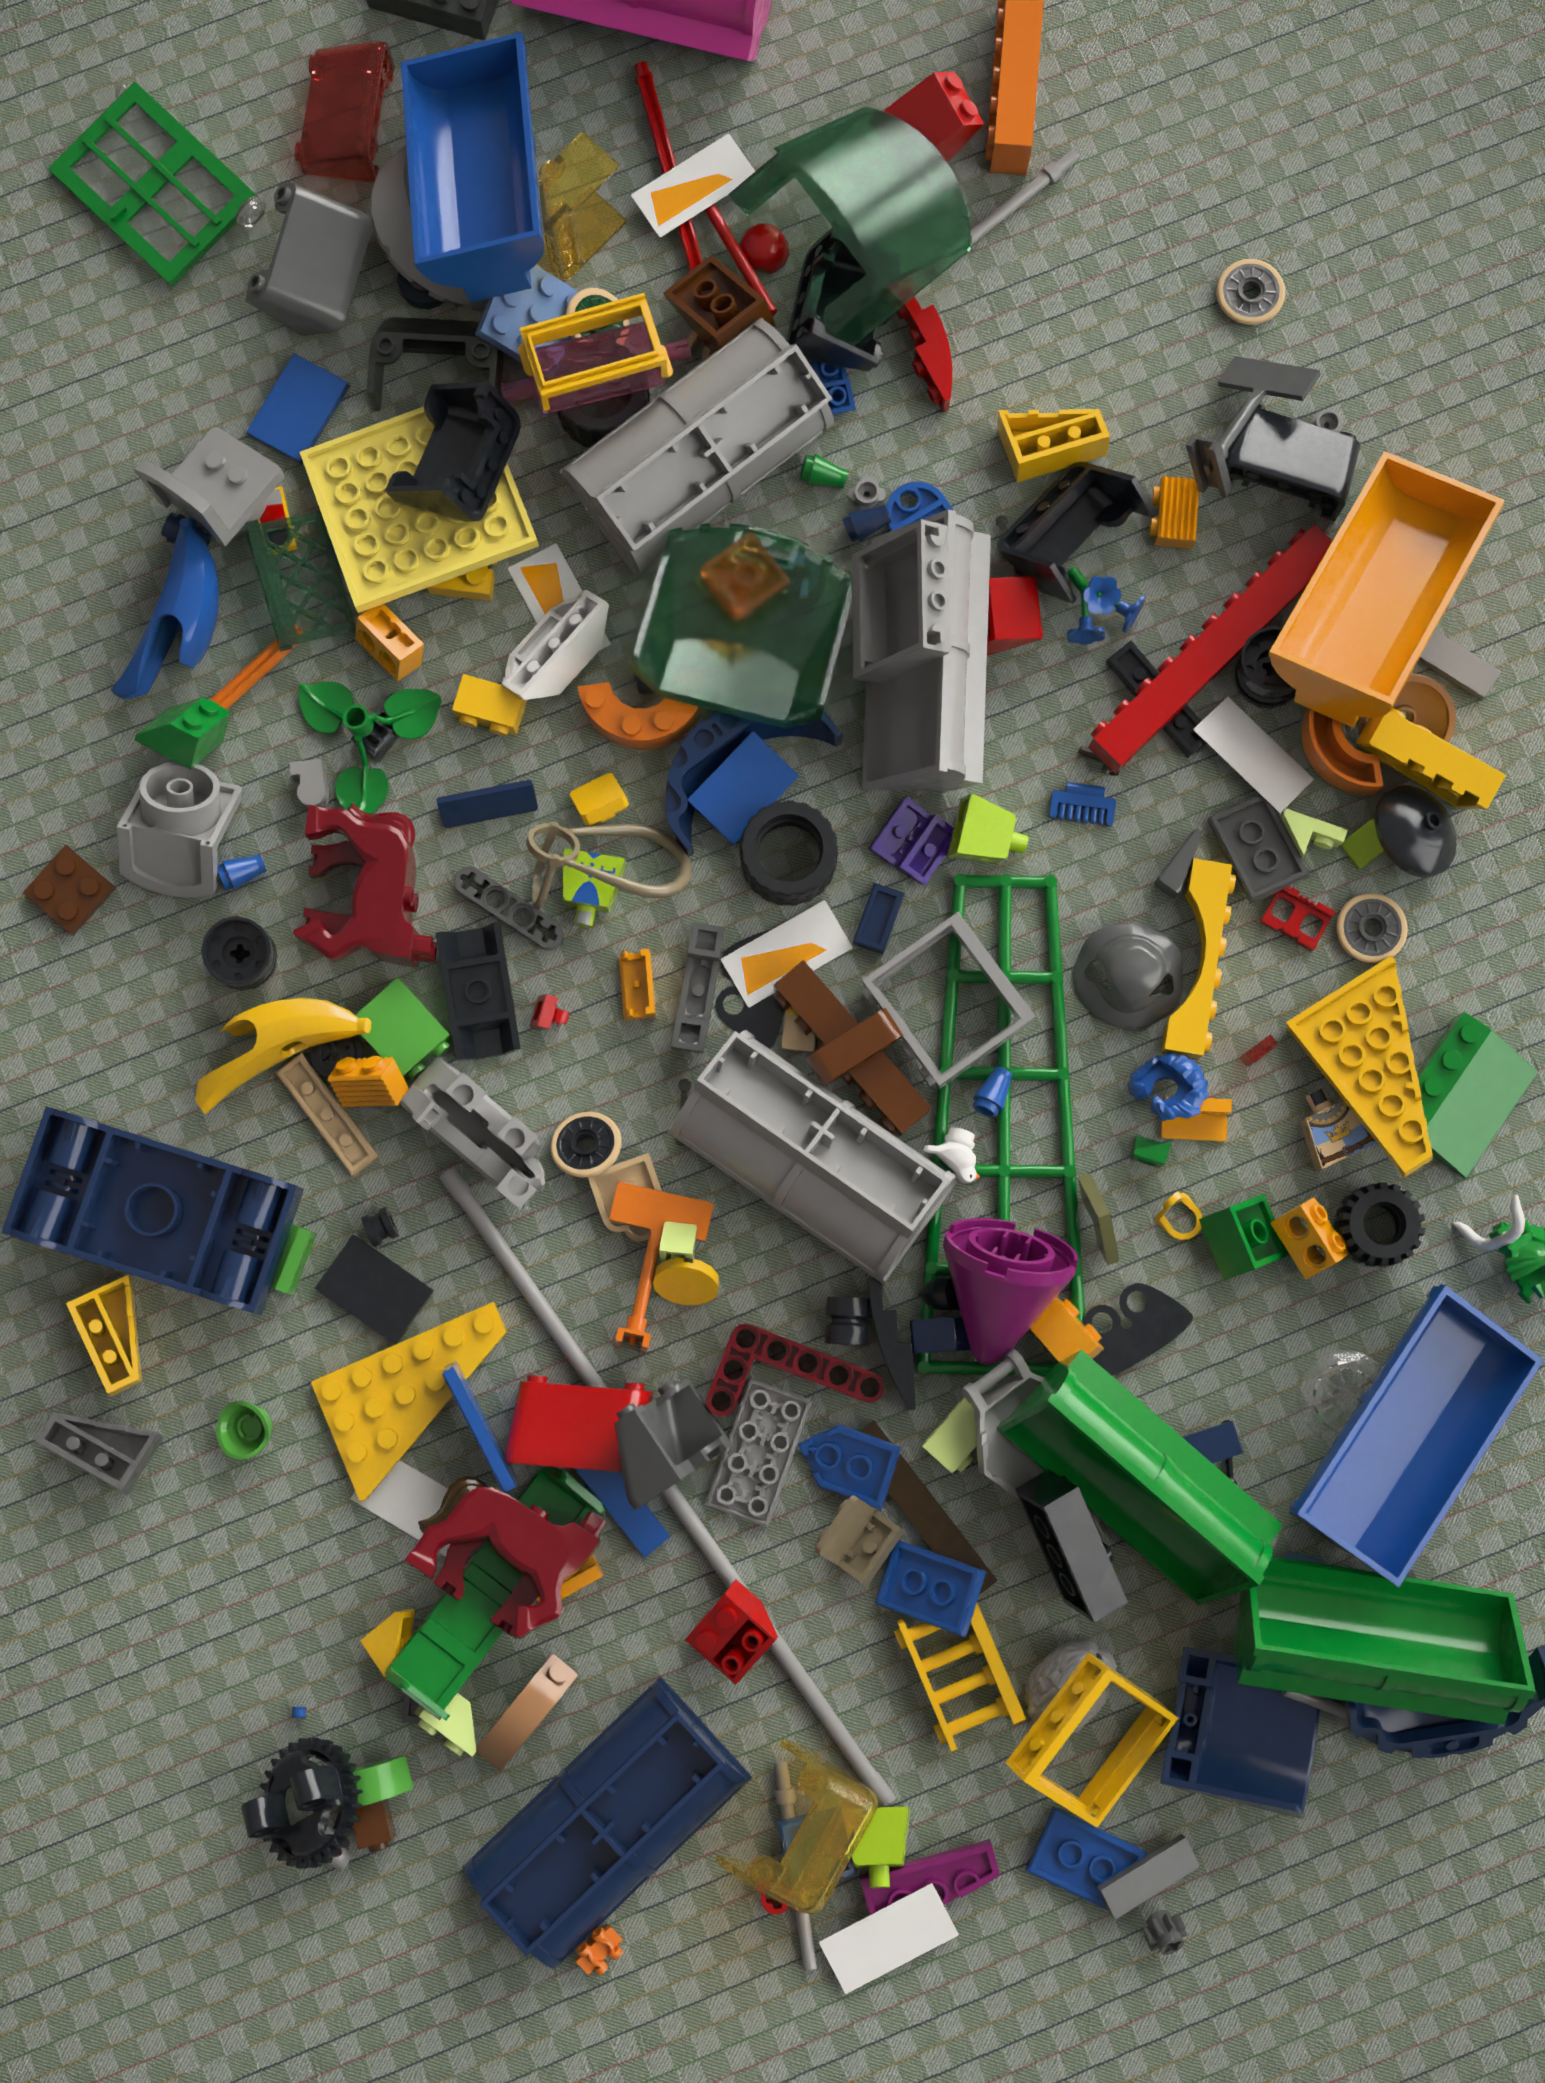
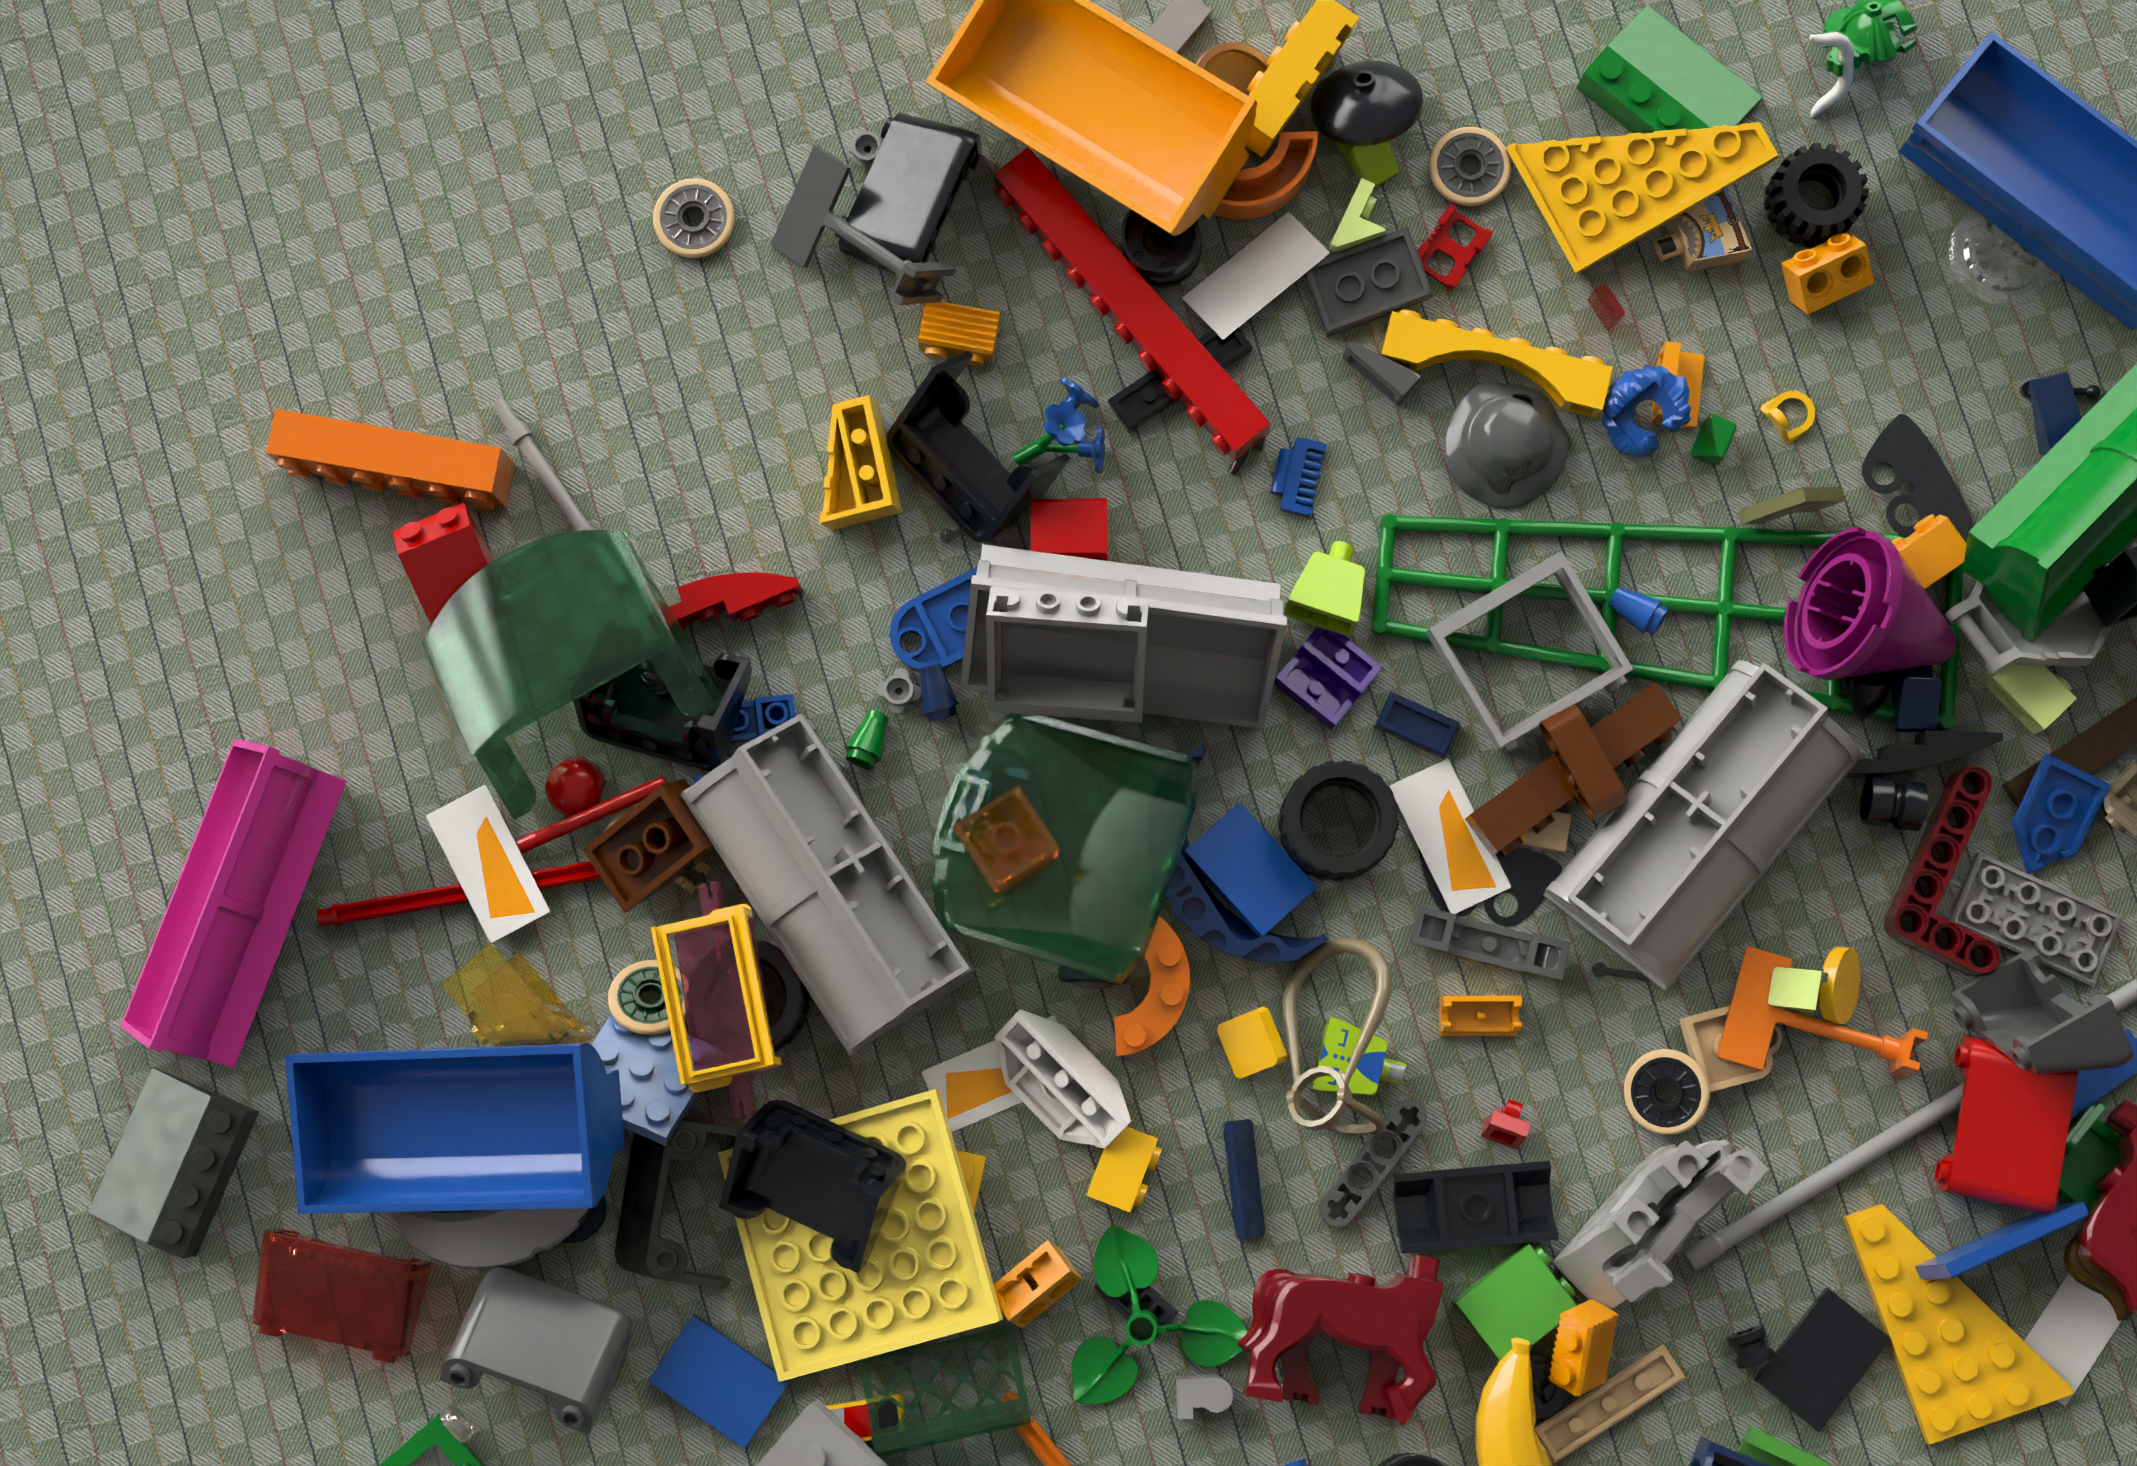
camera: 85 degrees left, 0 degrees up
(957, 1154) = (1709, 657): white animal -> none
(1243, 1237) = (1820, 347): green slope -> none

